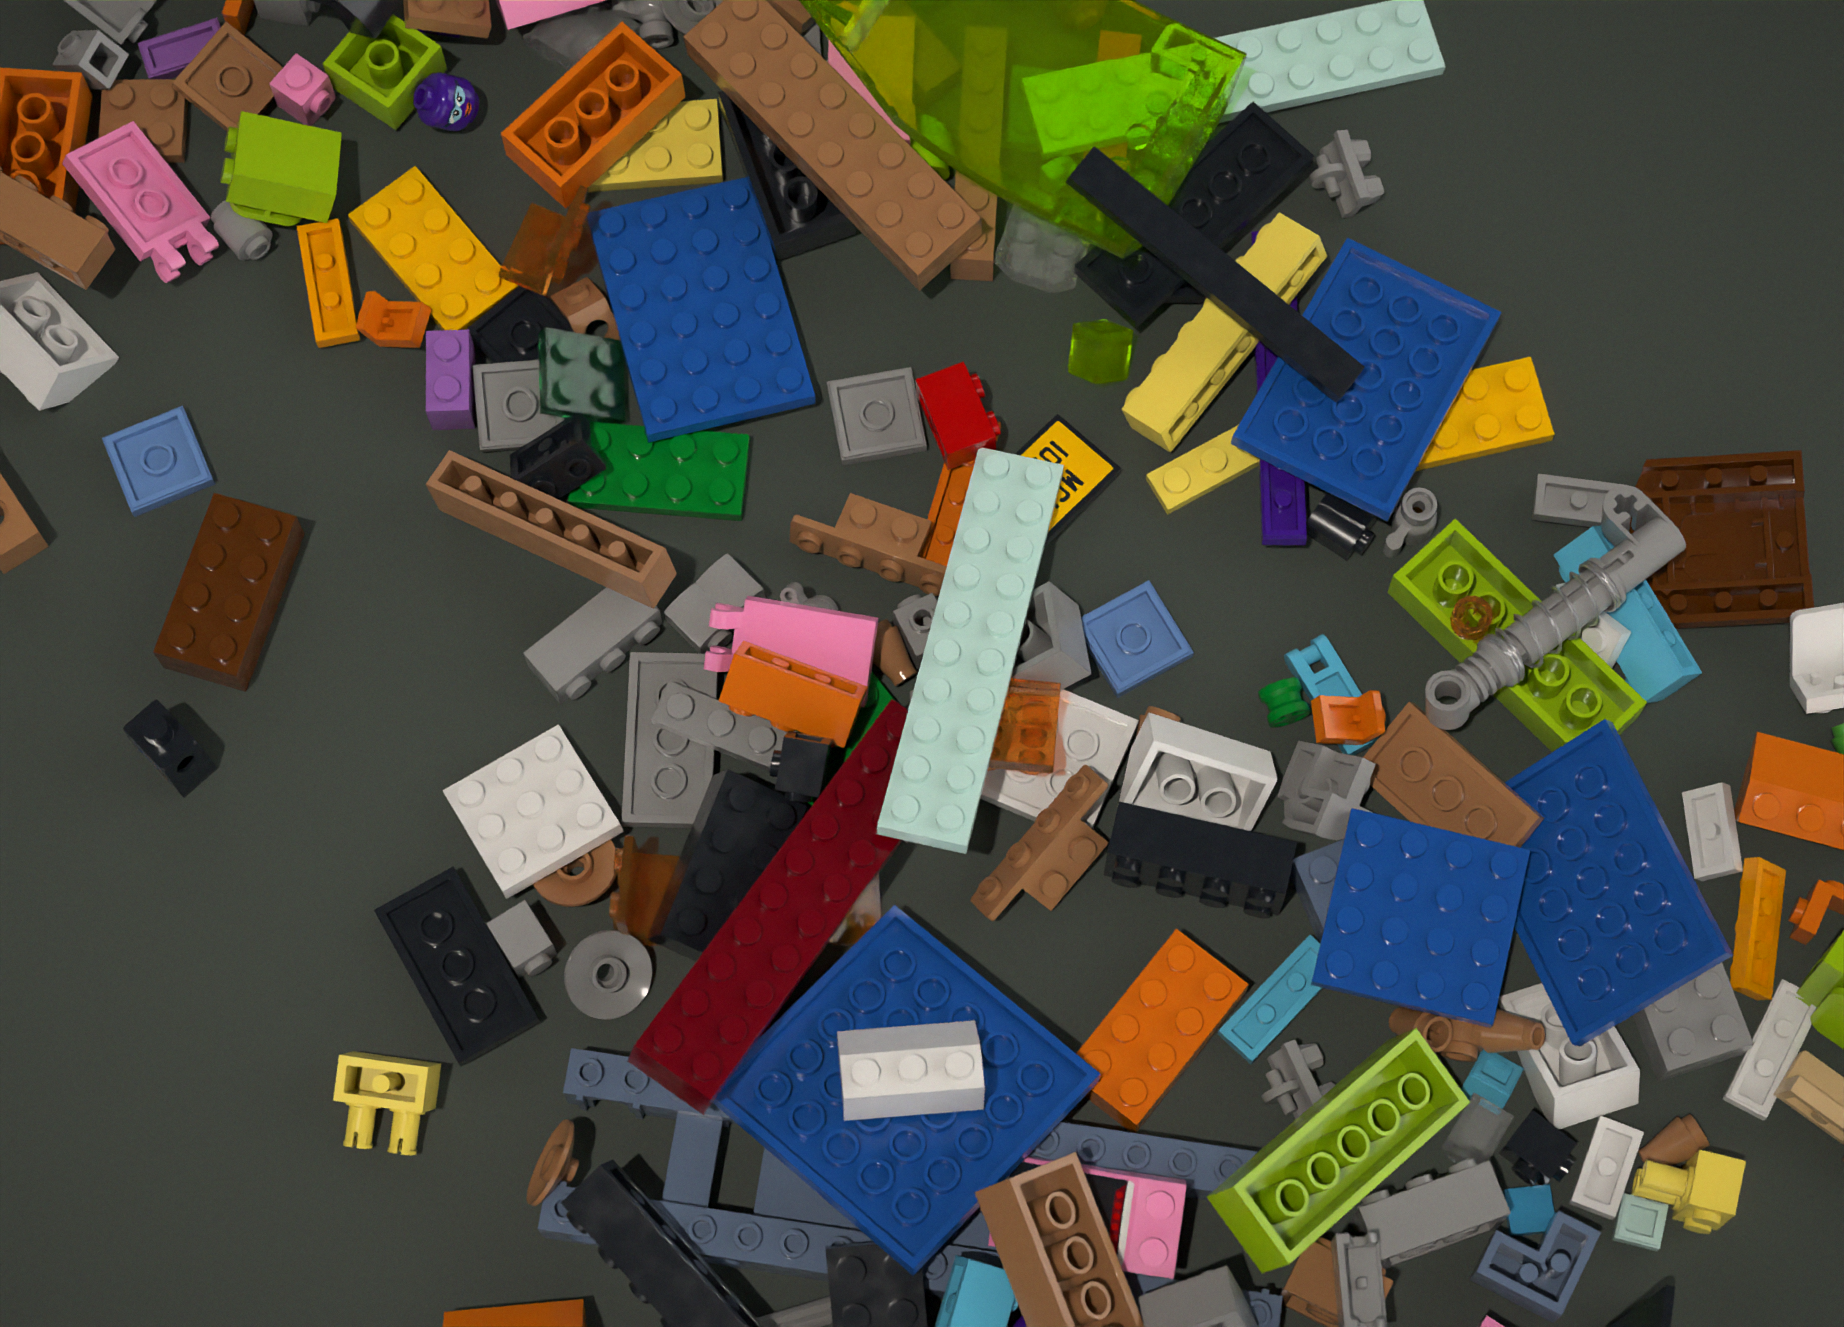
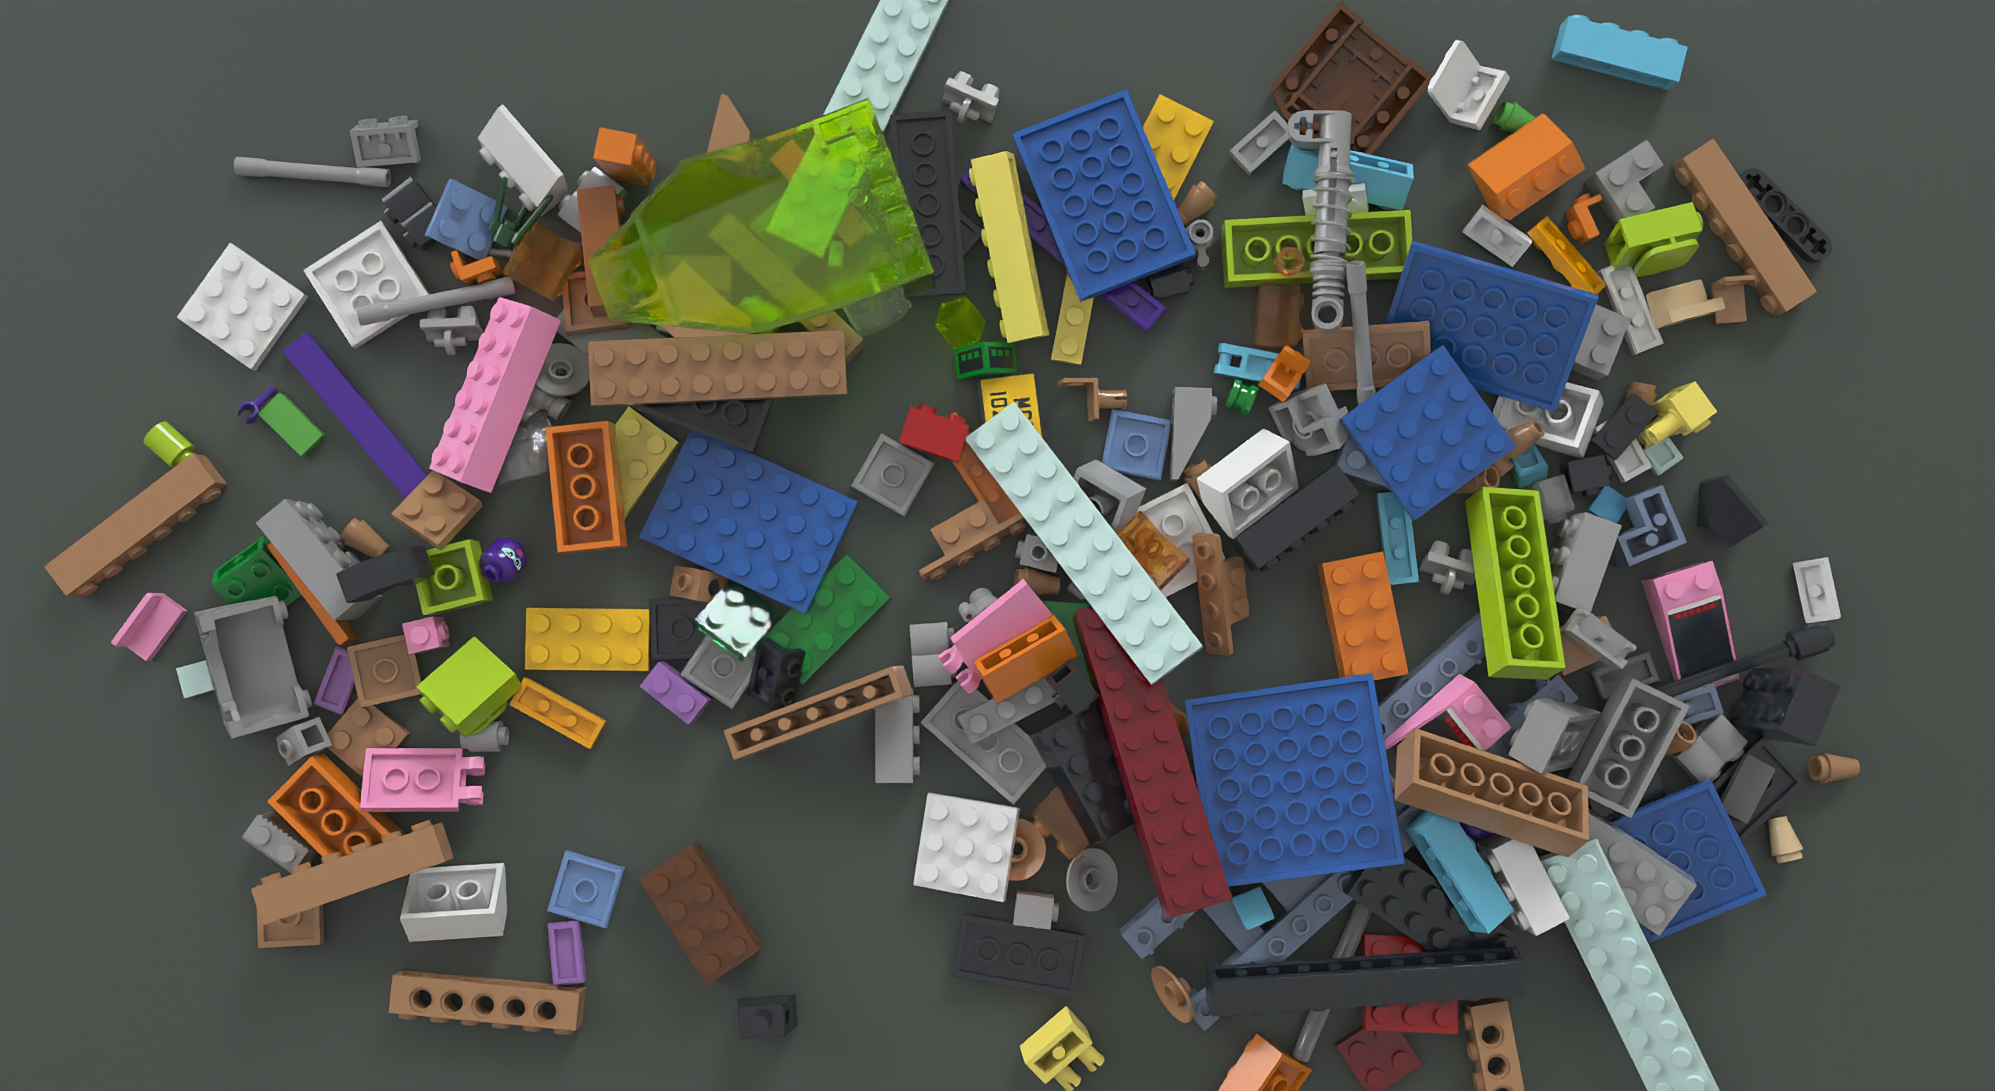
camera: 50 degrees left, 15 degrees up
(72, 495) = (566, 952): none -> medium lavender tile
(392, 321) = (613, 696): orange bracket -> none
(544, 245) = (638, 578): clear orange bracket -> none
(722, 1170) = (1252, 908): none -> medium azure slope
(910, 1070) = (1290, 771): white slope -> none
(1086, 408) = (985, 359): none -> slope
(1147, 556) = (1096, 398): none -> medium nougat bracket
(1203, 672) = (1189, 417): none -> light grey slope
(1215, 274) = (983, 230): black tile -> none
(1405, 666) = (1277, 316): none -> clear orange bracket
(1452, 486) = (1196, 203): none -> medium nougat cone
(1503, 704) = (1357, 289): none -> light grey piece
(1628, 1141) = (1624, 426): none -> black plate

